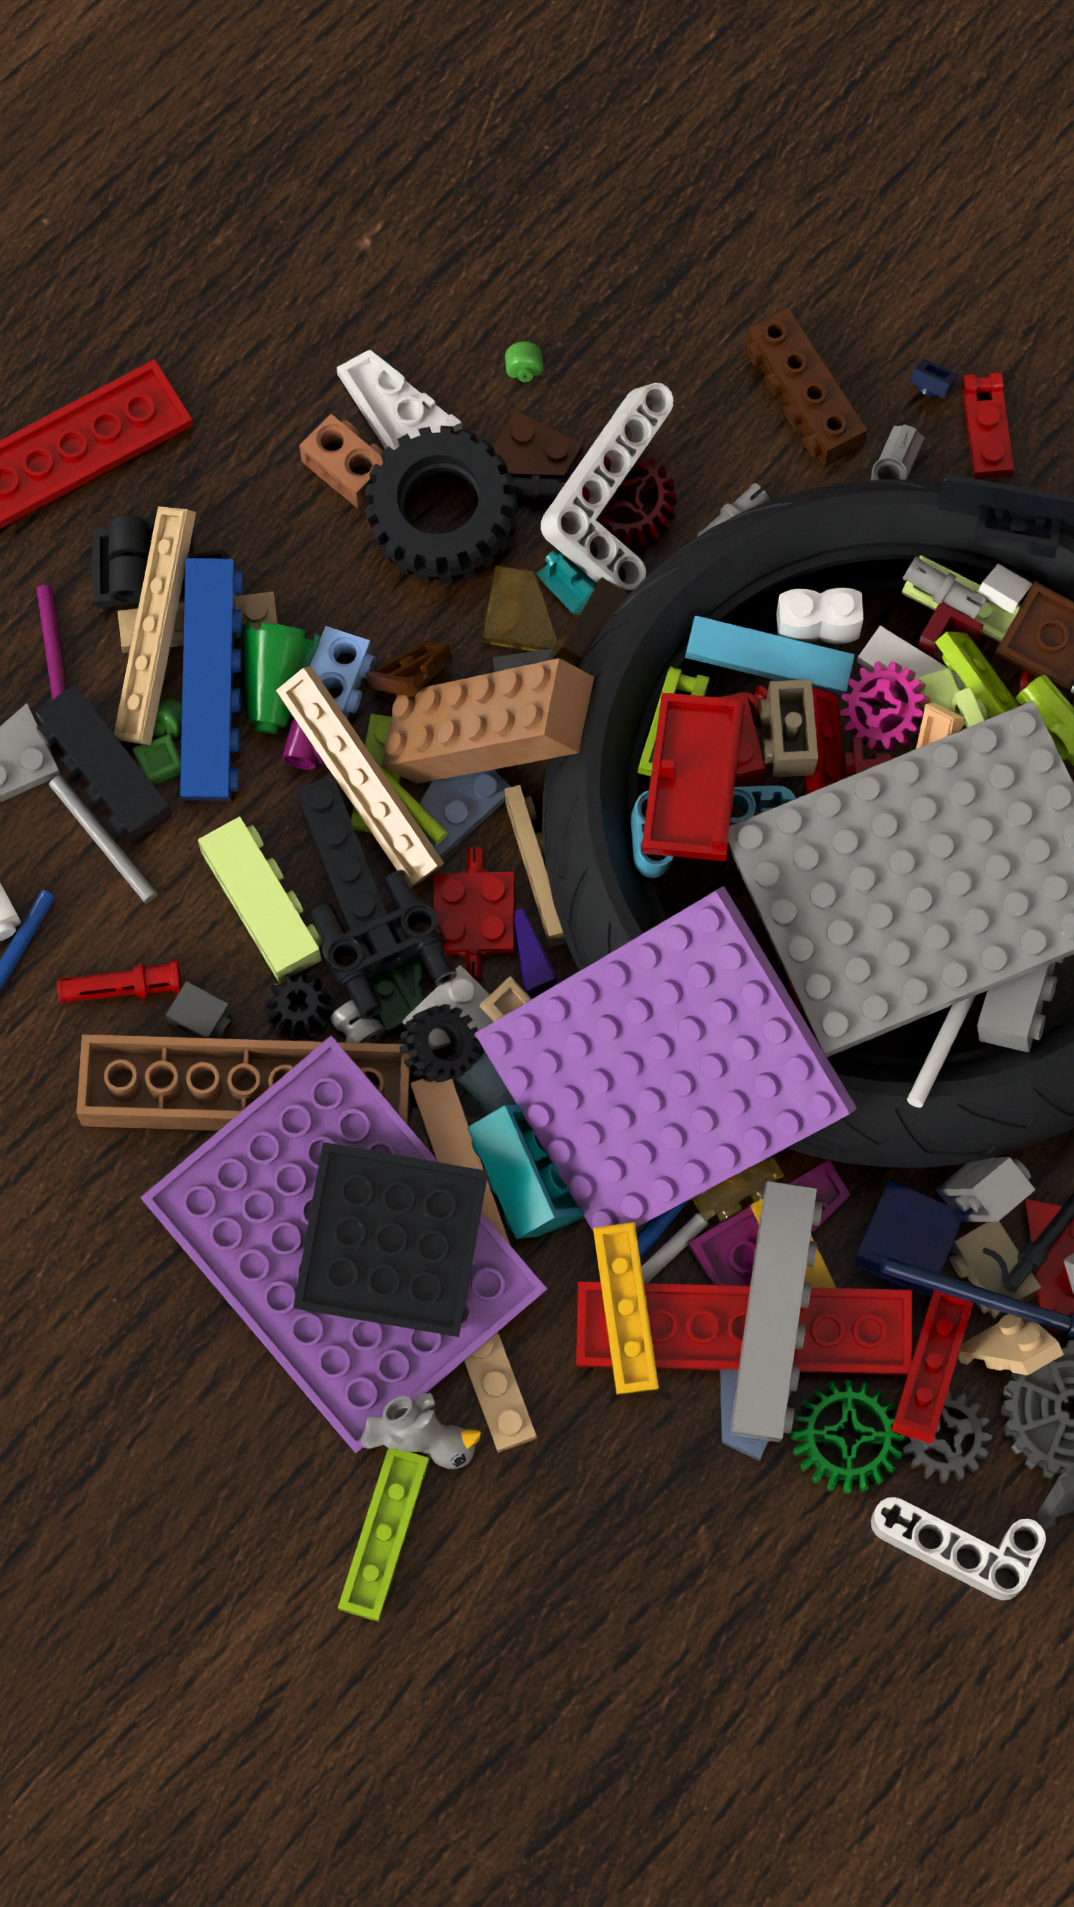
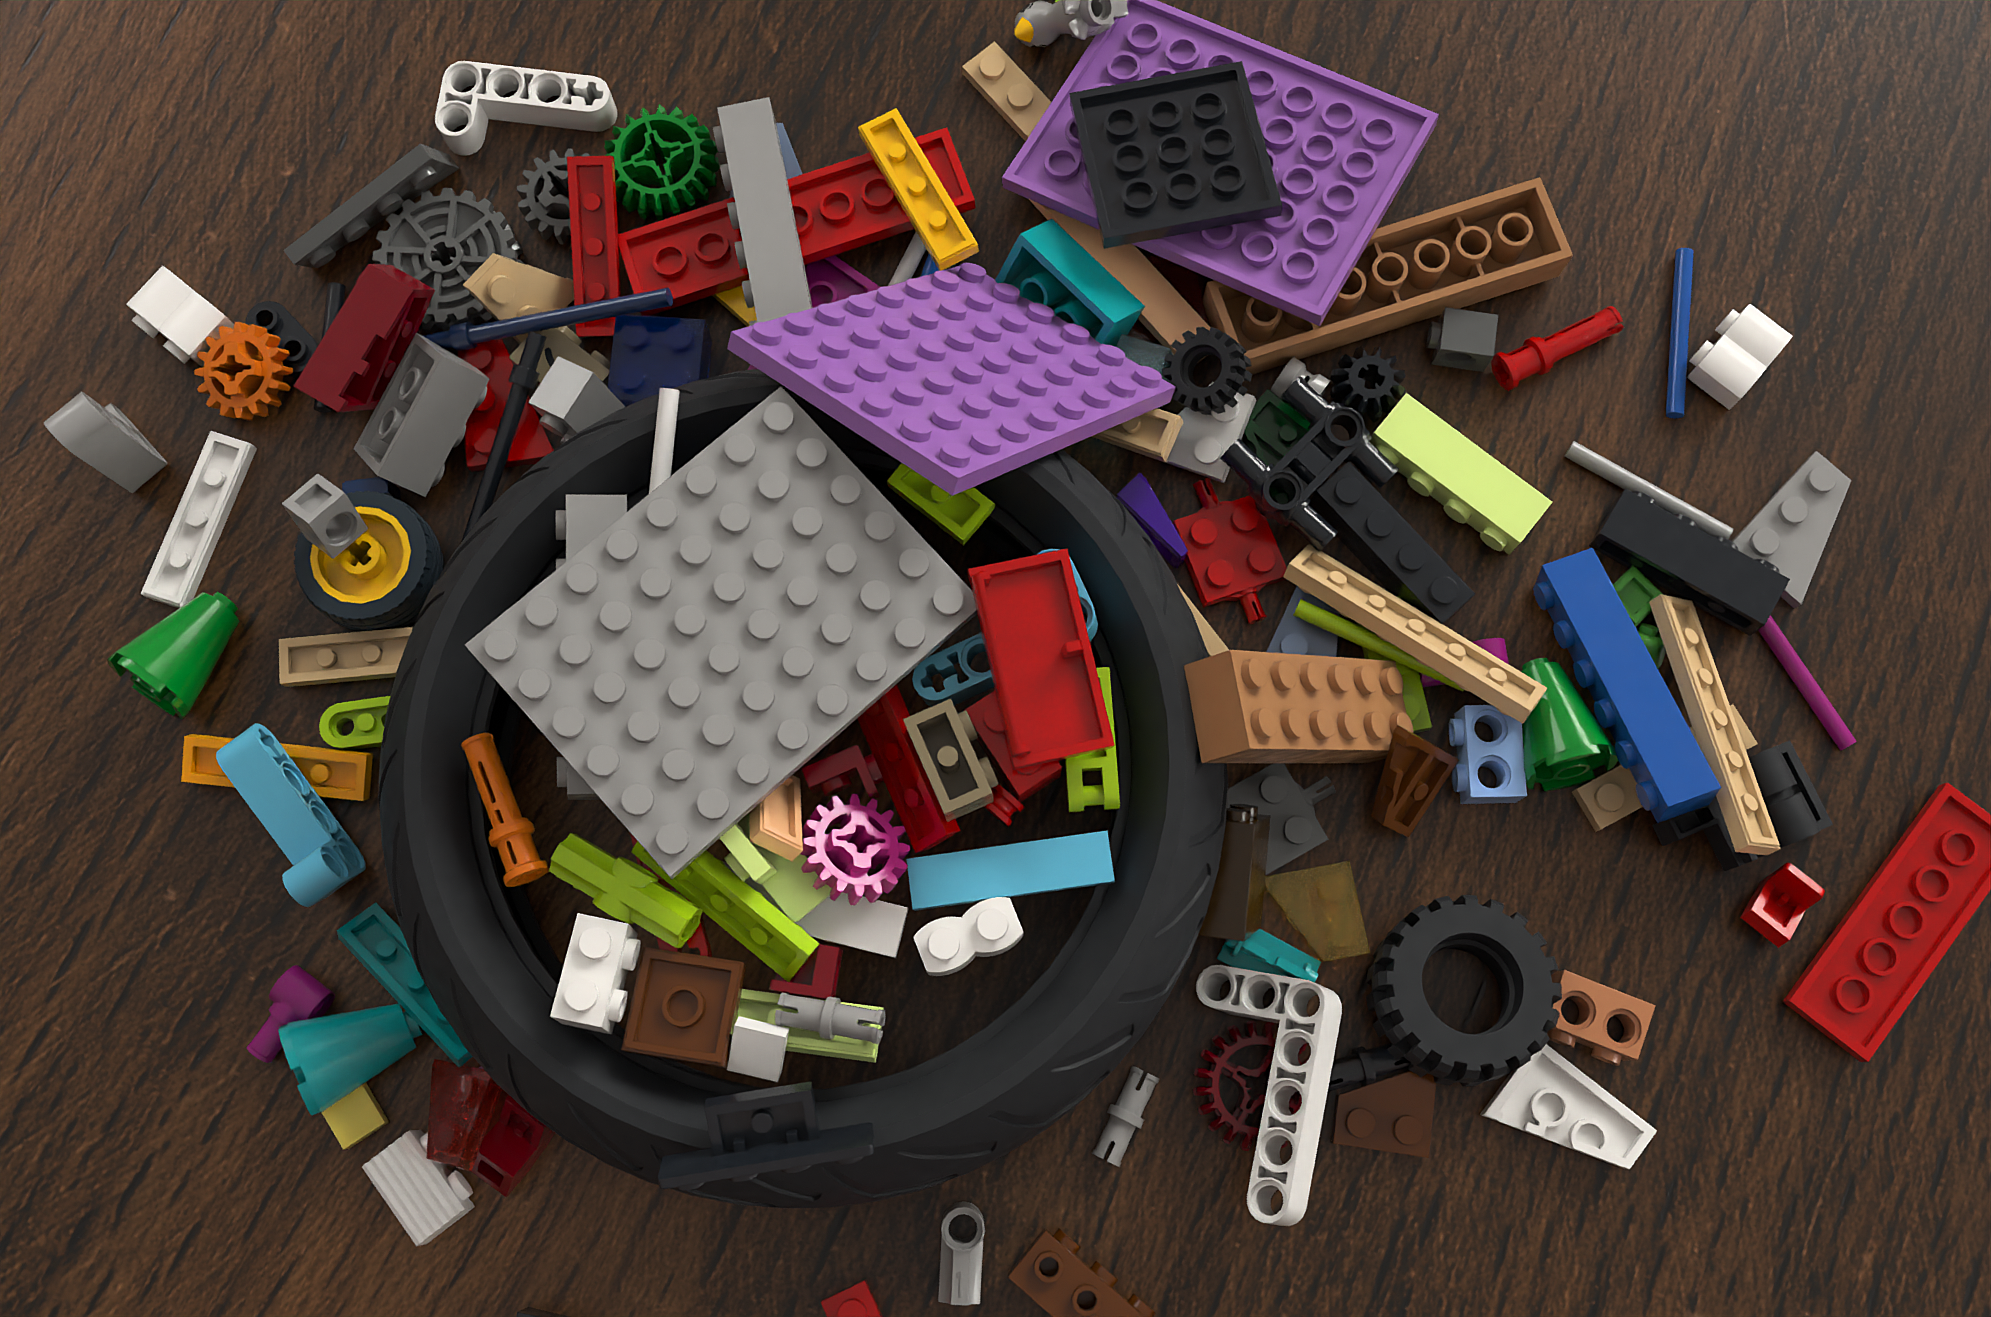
camera: 160 degrees right, 5 degrees up
(163, 488) = (1781, 903): none -> red bracket
(524, 361) = (1444, 1232): bright green piece -> none

